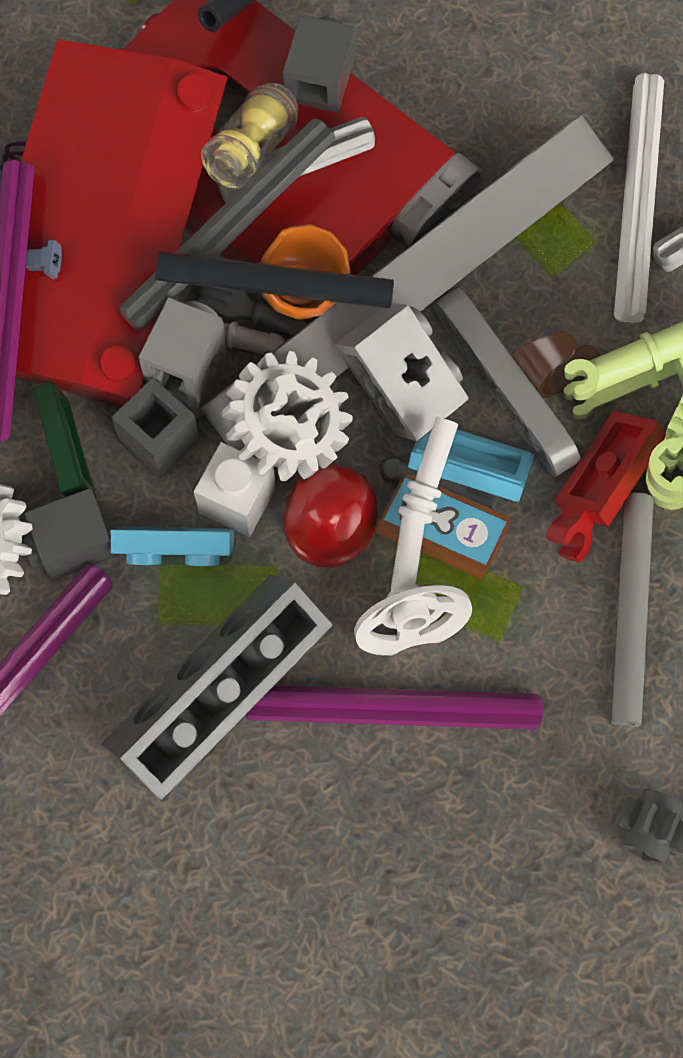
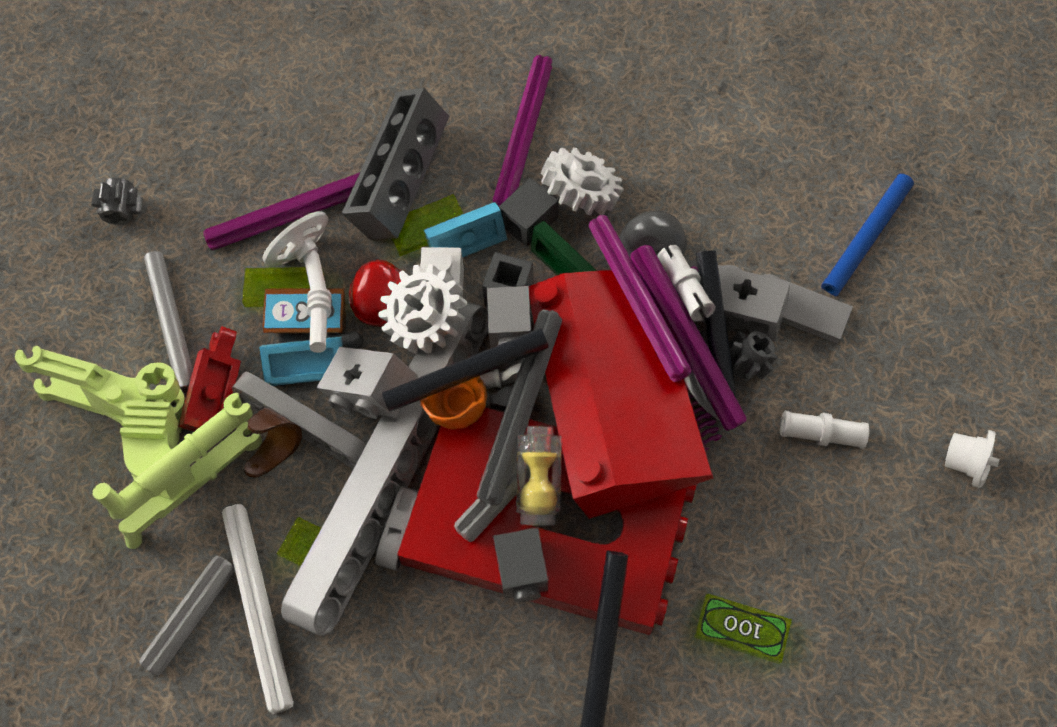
camera: 155 degrees right, 5 degrees down
(45, 259) = (627, 328): sand blue piece -> none

